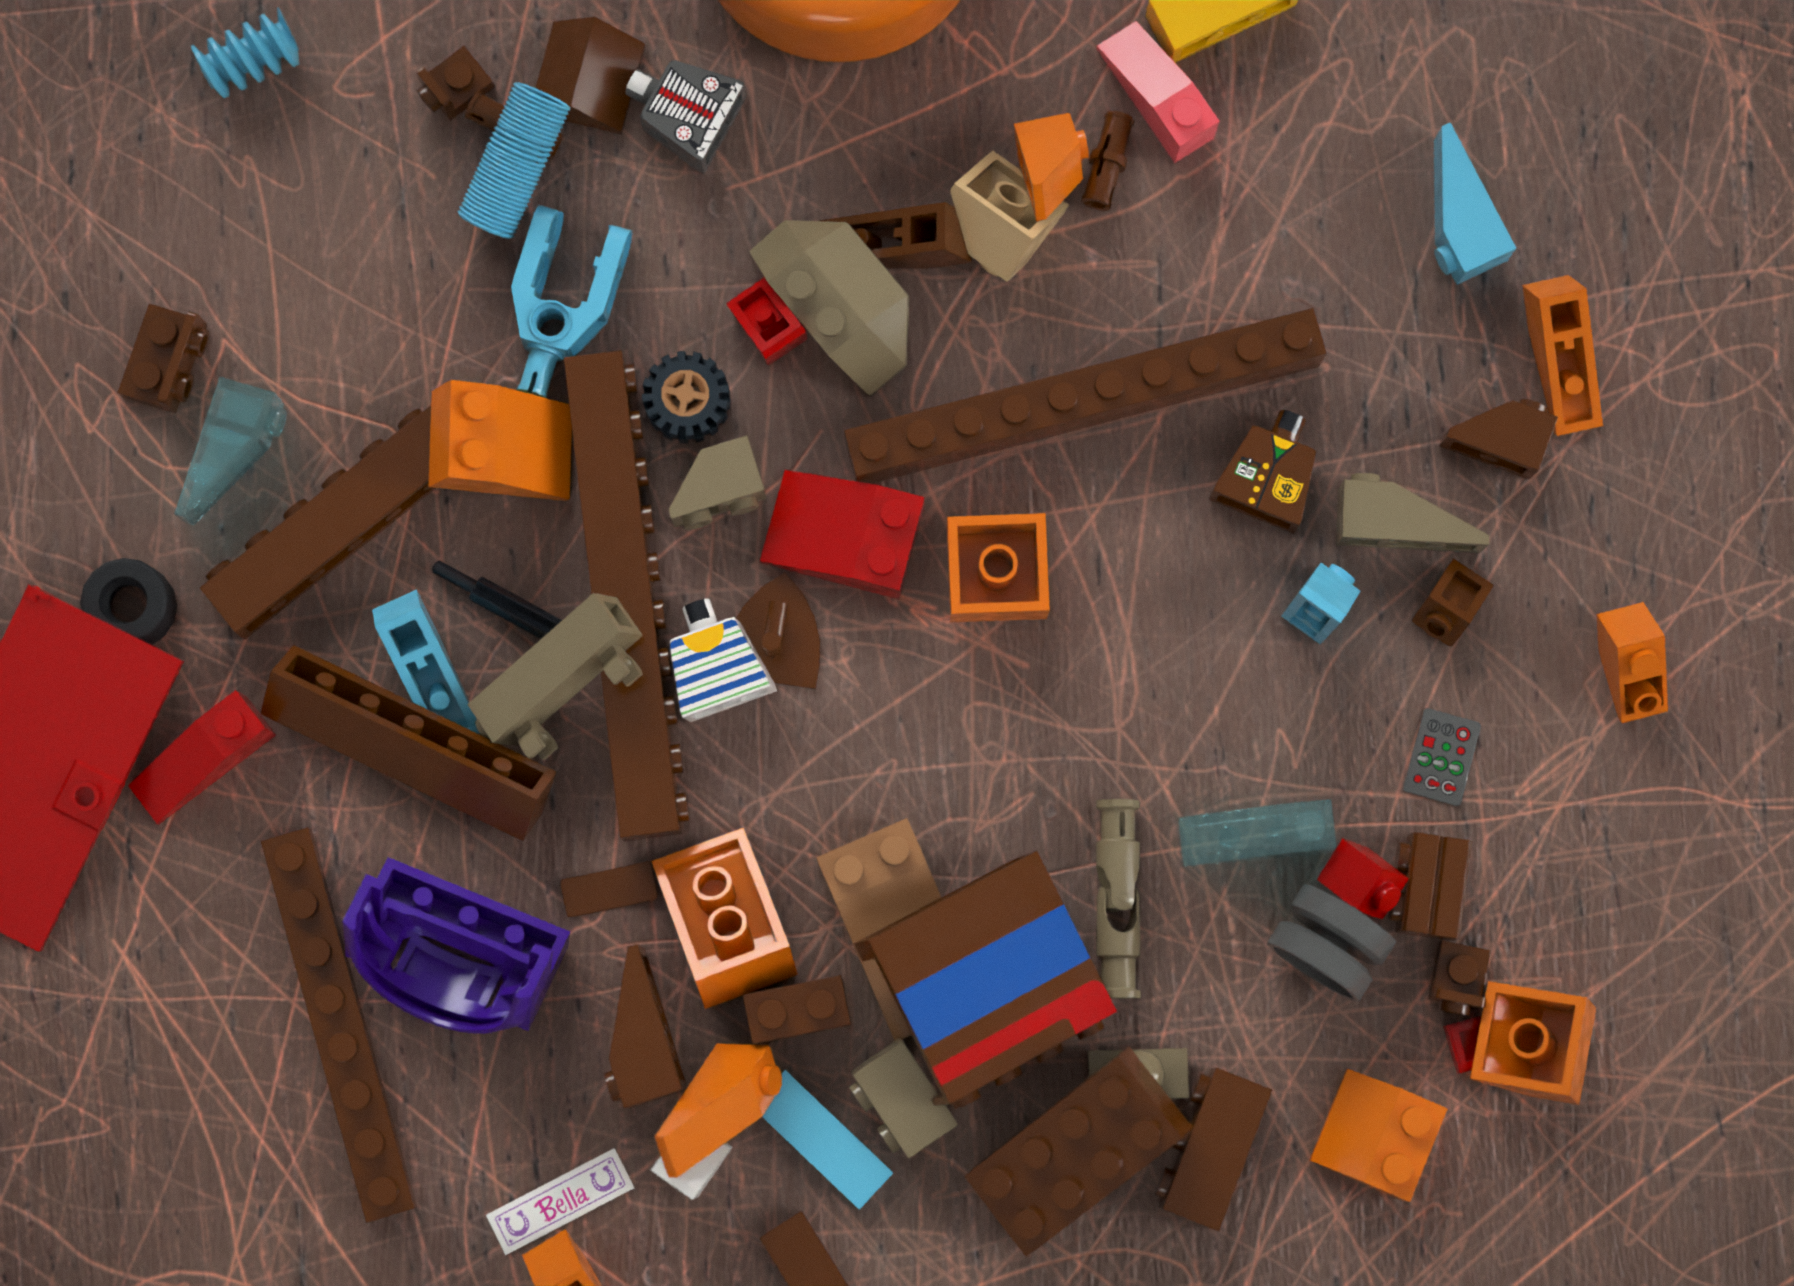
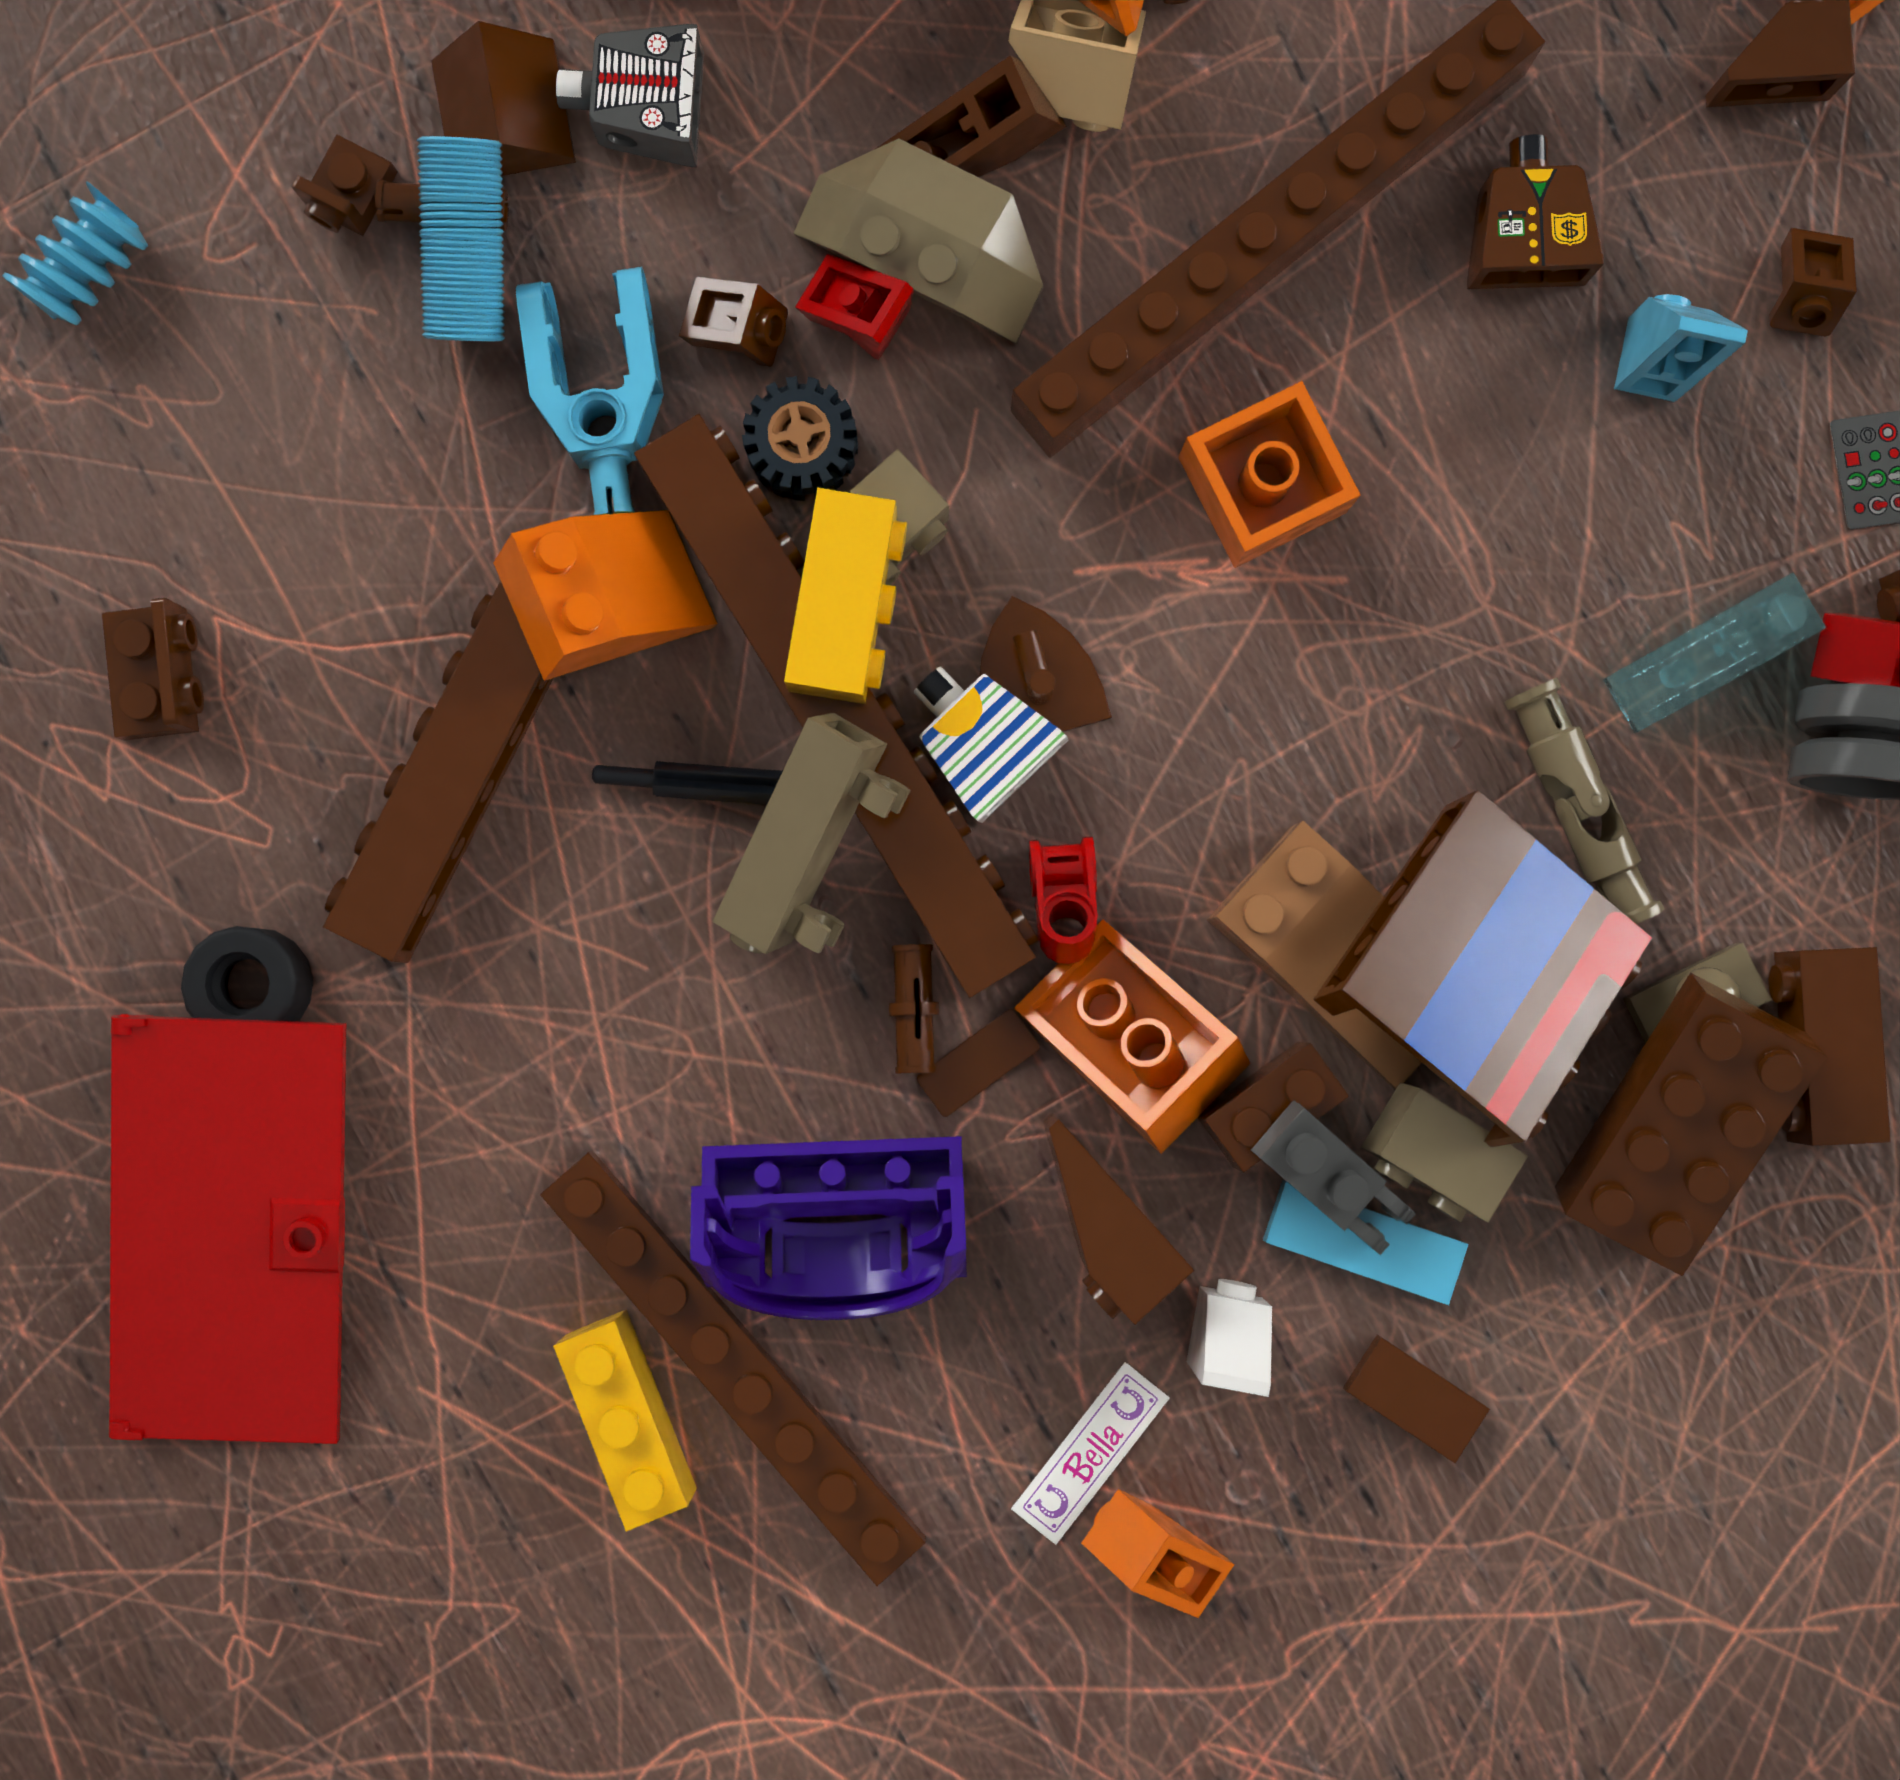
camera: 25 degrees left, 5 degrees up
(201, 755) = (421, 1124): red slope -> none
(231, 442) = (279, 735): clear light blue slope -> none
(247, 1023) = (626, 1420): none -> yellow brick
(407, 742) = (659, 999): reddish brown brick -> none
(422, 659) = (641, 902): medium azure slope -> none
(595, 798) = (914, 1008): none -> reddish brown pin
(659, 521) = (844, 596): none -> yellow brick
(679, 294) = (735, 319): none -> reddish brown bracket
(718, 1104) = (1240, 1263): orange slope -> none
(722, 791) = (1064, 886): none -> red piece
(811, 1072) = (1328, 1173): none -> dark grey hinge
(843, 531) = (1063, 514): red slope -> none
(1393, 517) = (1708, 206): dark tan slope -> none

